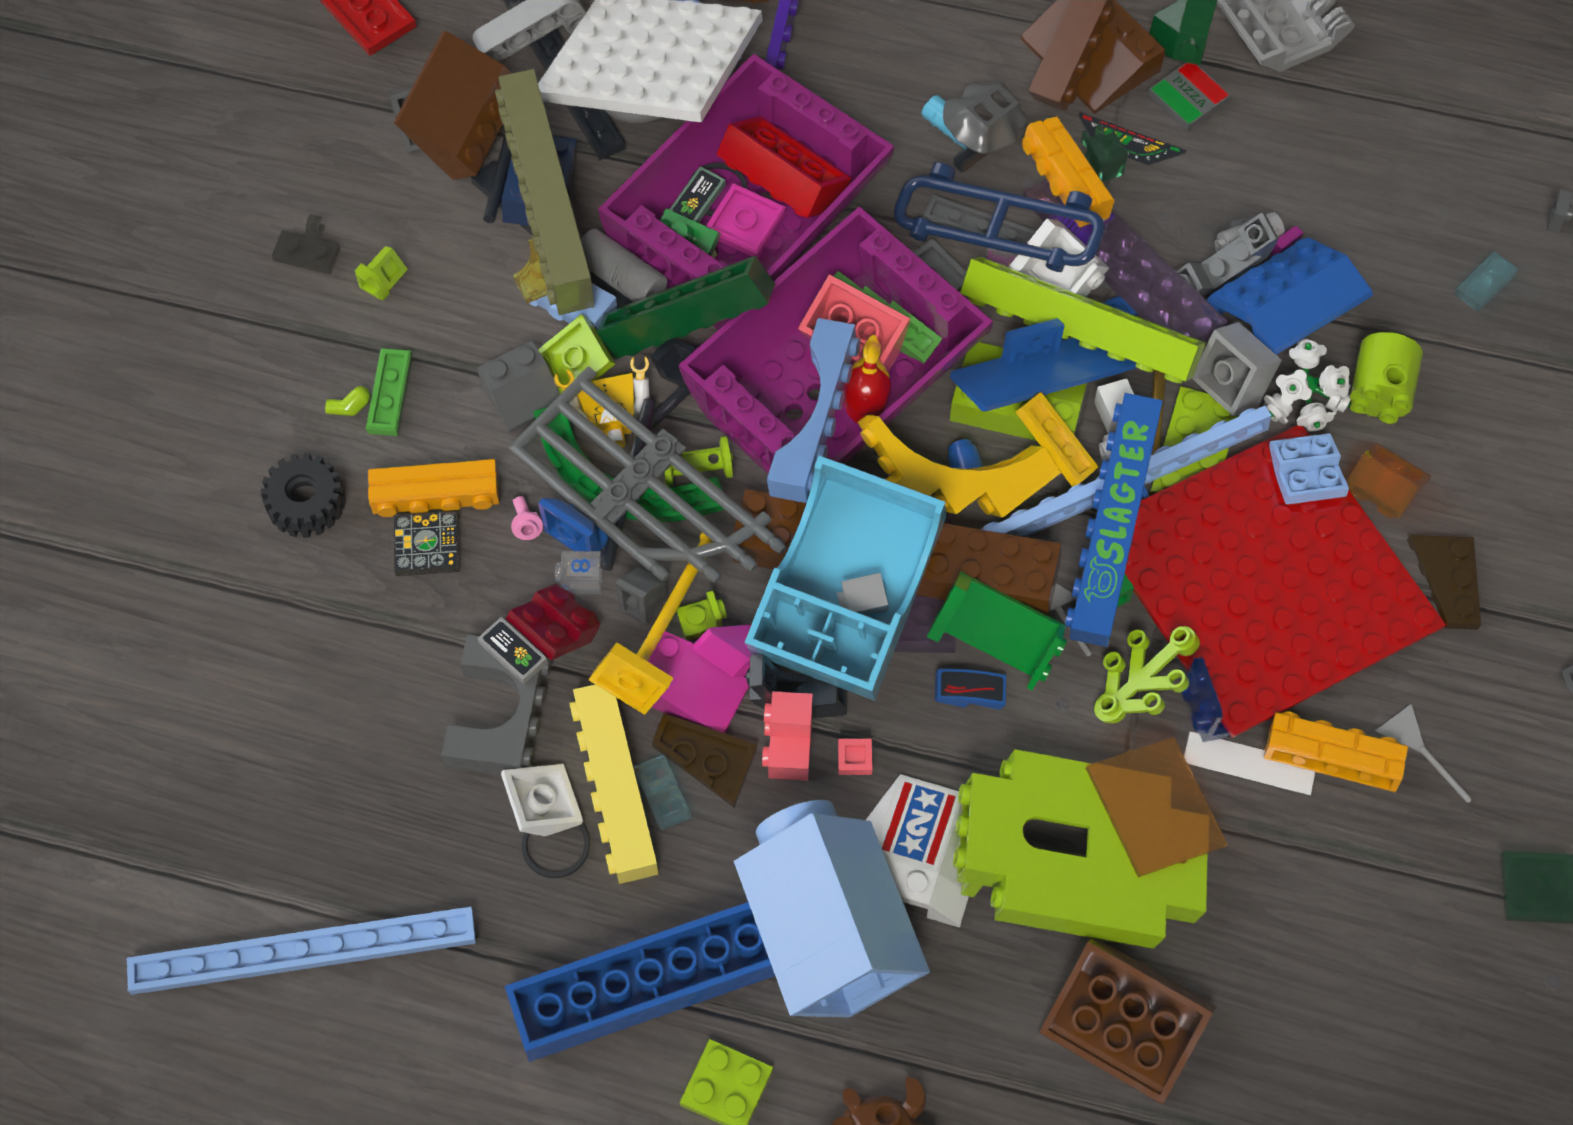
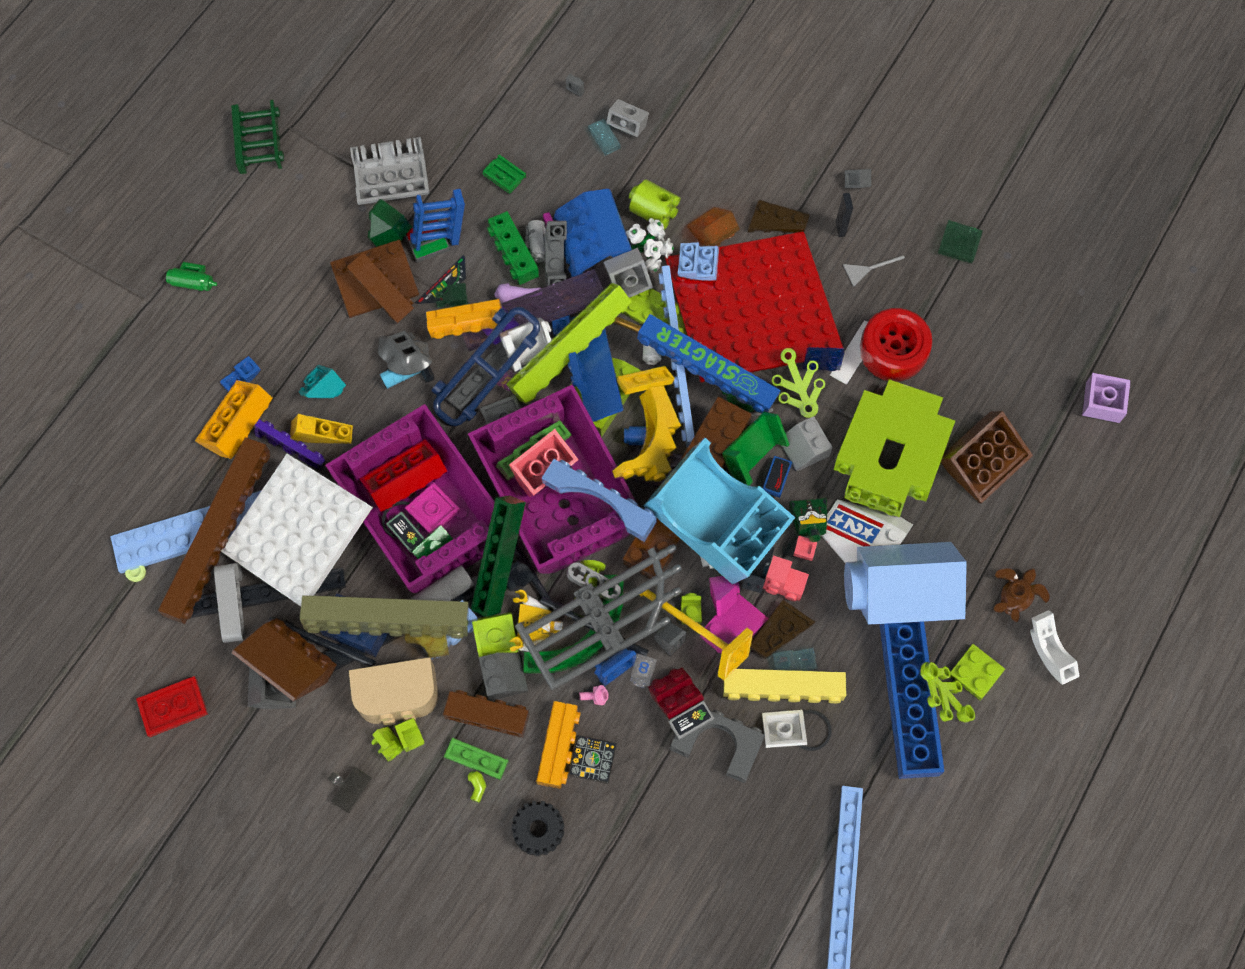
camera: 75 degrees left, 5 degrees up
(399, 295) = (409, 735): none -> lime panel
(453, 254) = (394, 691): none -> tan brick
(454, 380) = (486, 714): none -> reddish brown brick
(665, 1024) = (930, 673): none -> lime plant
(708, 439) = (591, 573): none -> light grey beam
(823, 53) = (319, 430): none -> yellow slope
(864, 595) = (727, 507): light grey brick -> none
(869, 384) = (582, 462): red hair -> none
(894, 32) = (322, 383): none -> teal slope
(910, 752) = (810, 517): none -> dark green torso
(1044, 717) = (807, 444): none -> light grey slope
(1106, 399) = (627, 344): white brick -> none
(1141, 219) = (506, 292): none -> lavender piece
(1156, 806) = (880, 401): clear orange piece -> none
(1226, 201) = (513, 248): none -> green brick
(1230, 85) = (452, 224): none -> blue fence
(1272, 847) = (883, 359): none -> red wheel
(1336, 751) = (864, 307): light orange brick -> none
(1349, 160) = (504, 174): none -> green plate
(1492, 665) = (844, 214): none -> black tile
(1533, 299) = (627, 118): none -> light grey brick

